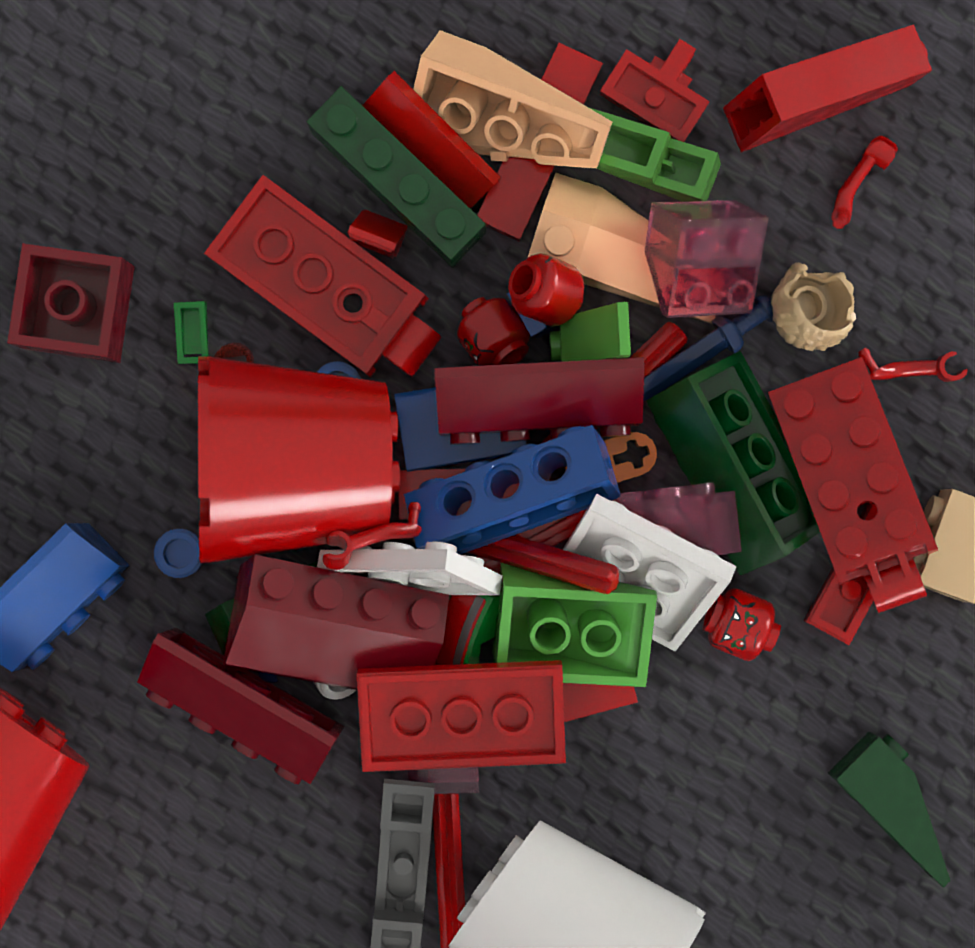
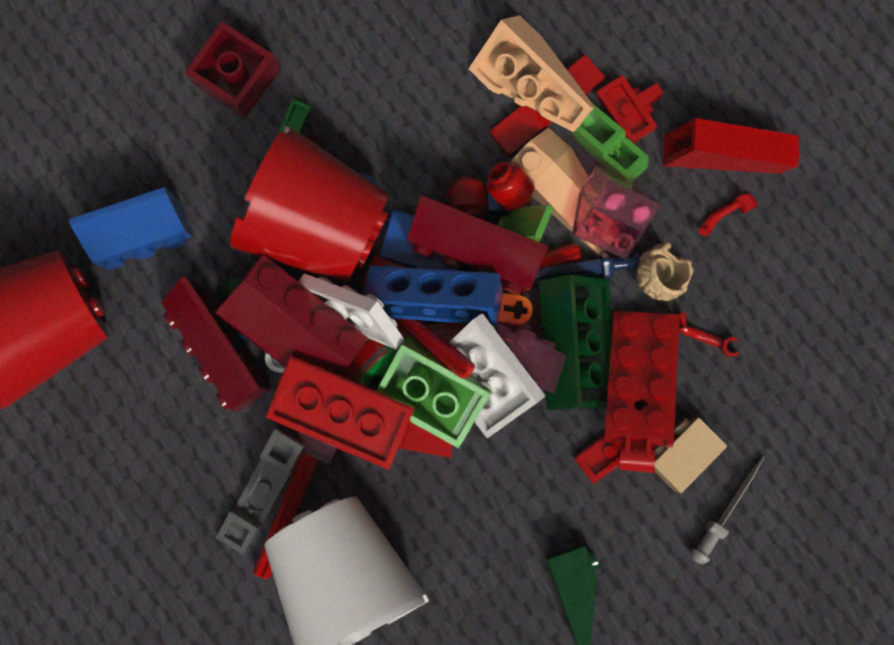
camera: 25 degrees right, 5 degrees down
(178, 553) = (220, 243): blue tile -> none
(311, 270) = (377, 118): red hinge -> none
(370, 536) = (341, 277): red piece -> none
(377, 233) = (428, 114): red slope -> none
(396, 177) = (455, 86): dark green brick -> none
(431, 139) = (483, 74): red tile -> none
(741, 624) = (534, 440): red head -> none

